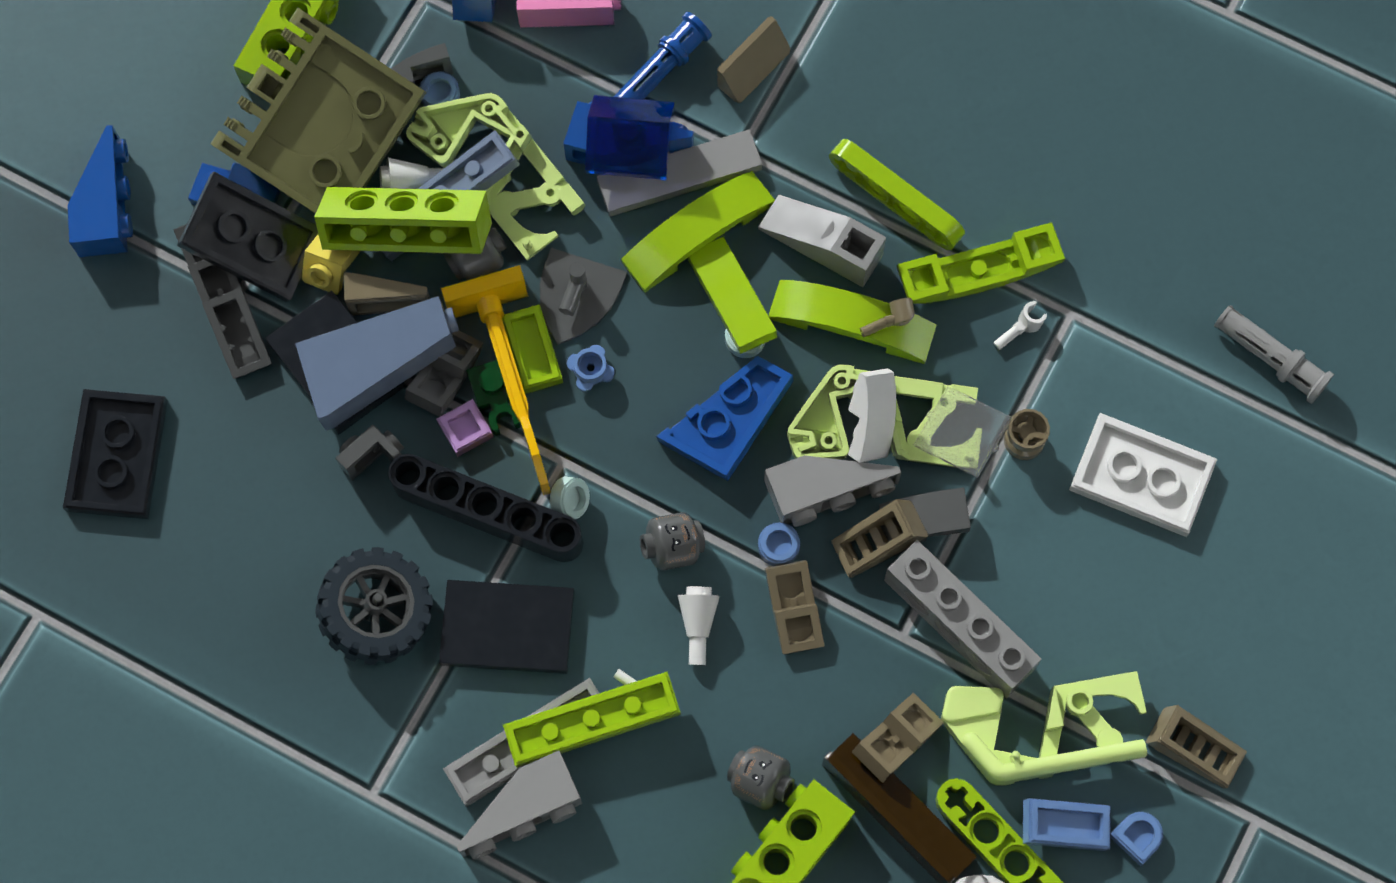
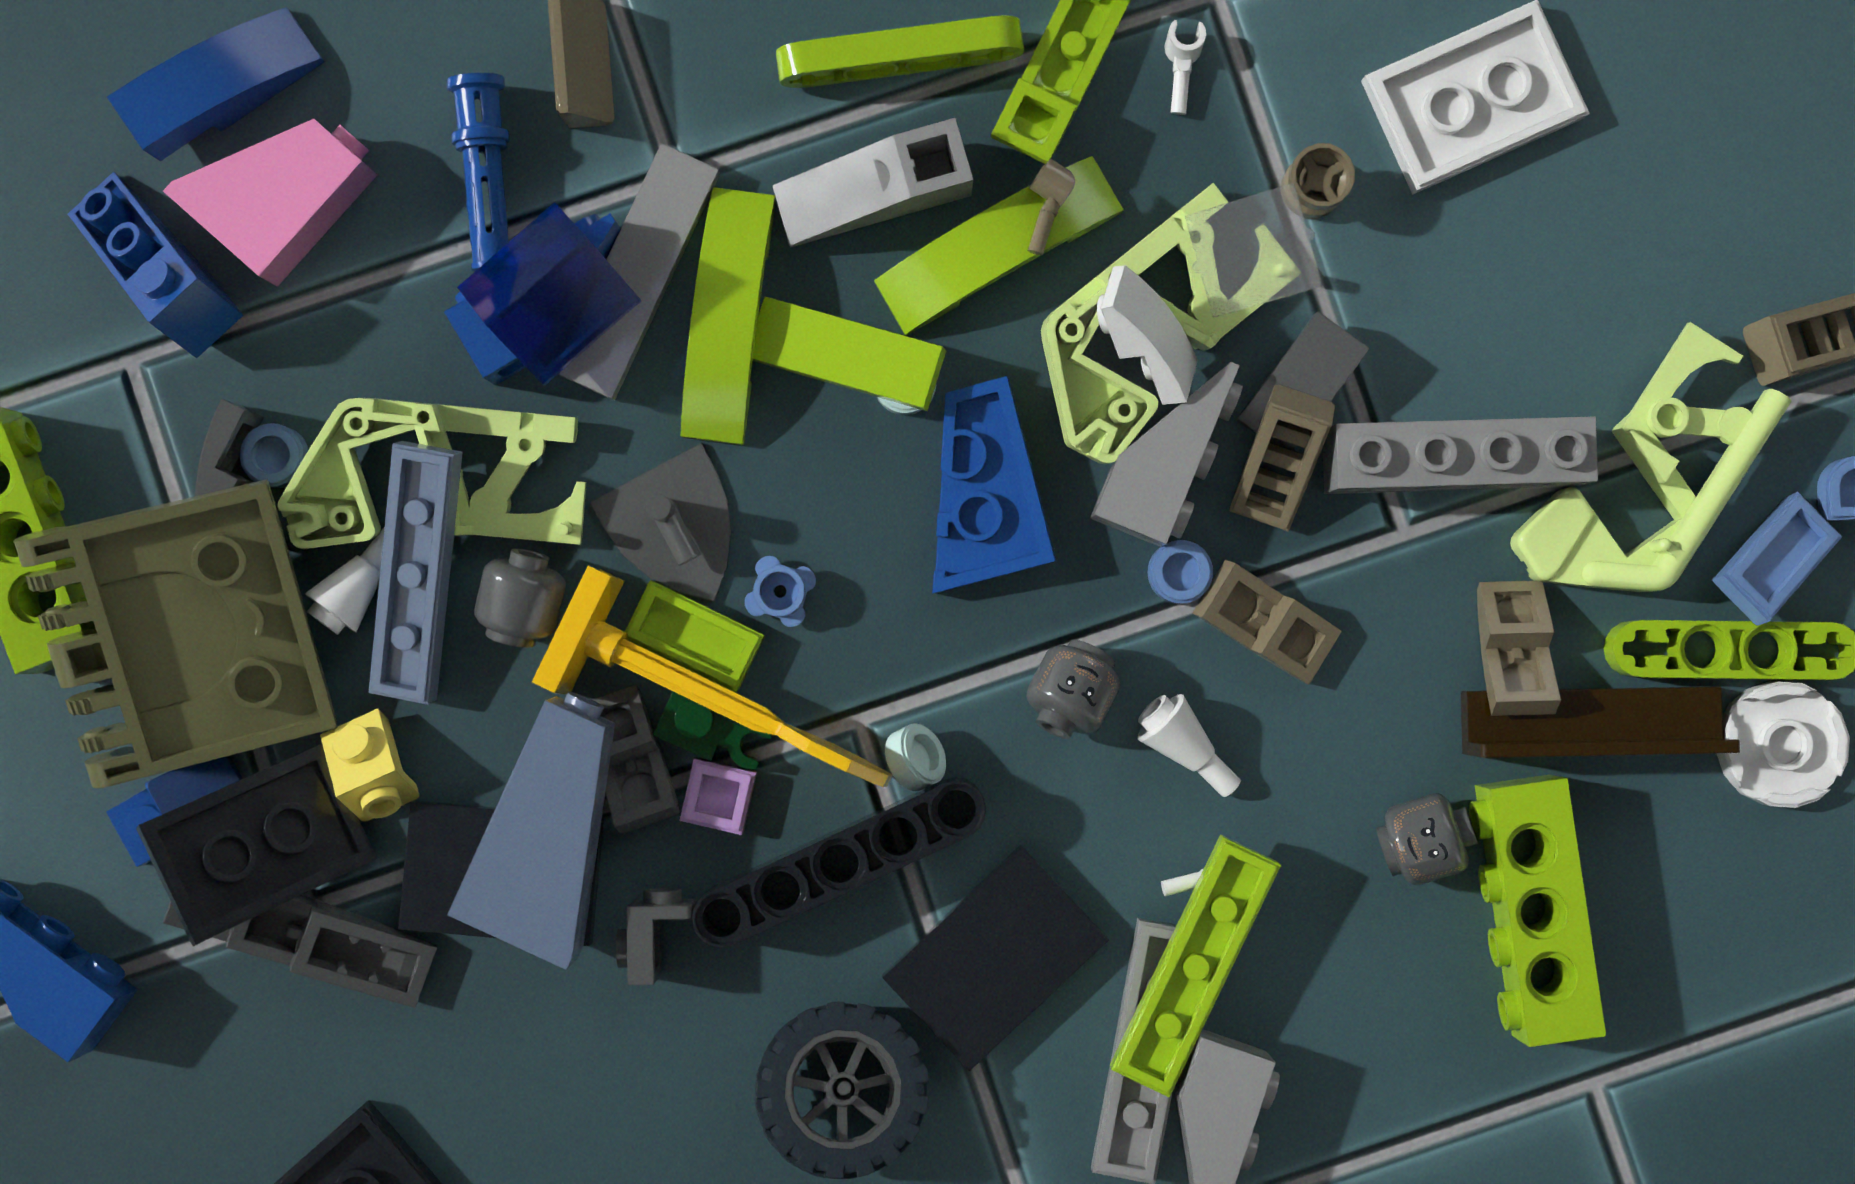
camera: 50 degrees left, 15 degrees up
(378, 295) = (461, 761): dark tan slope -> none
(403, 220) = (410, 654): lime brick -> none

